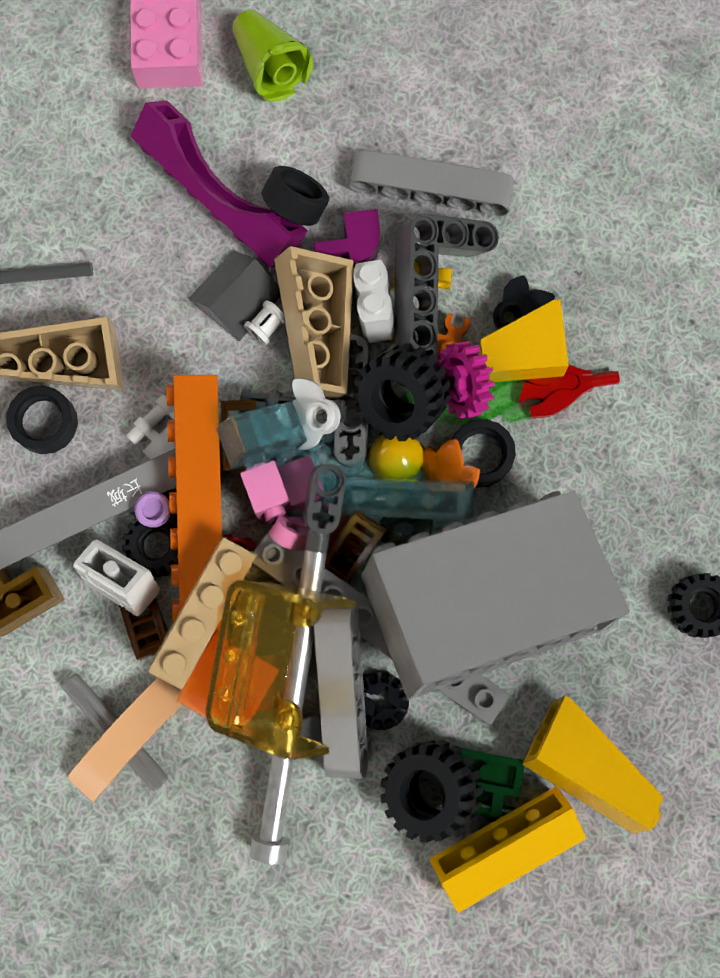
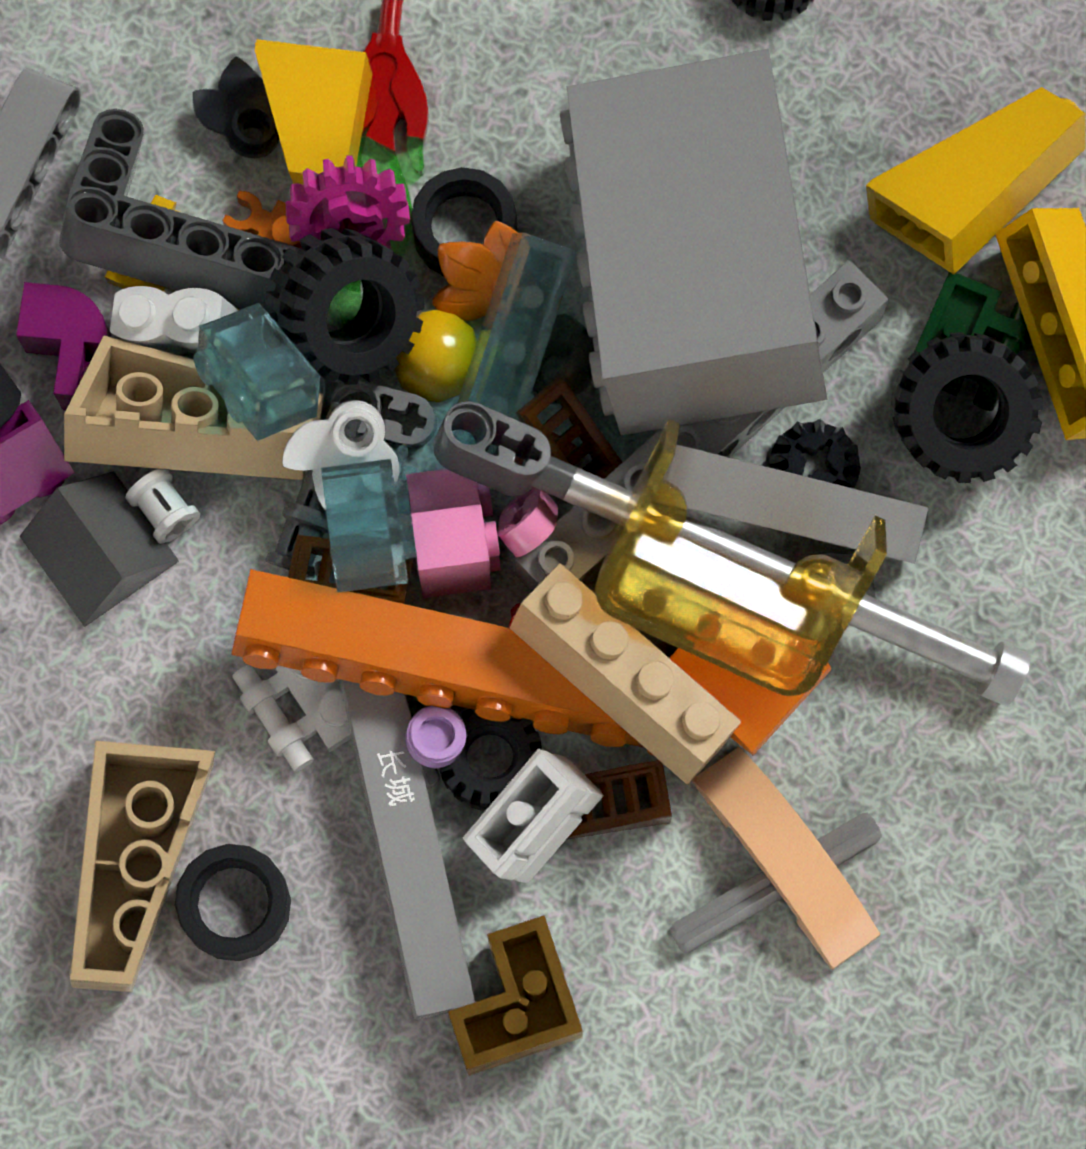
camera: 75 degrees left, 5 degrees down
(345, 350) = (257, 371): none -> clear light blue brick

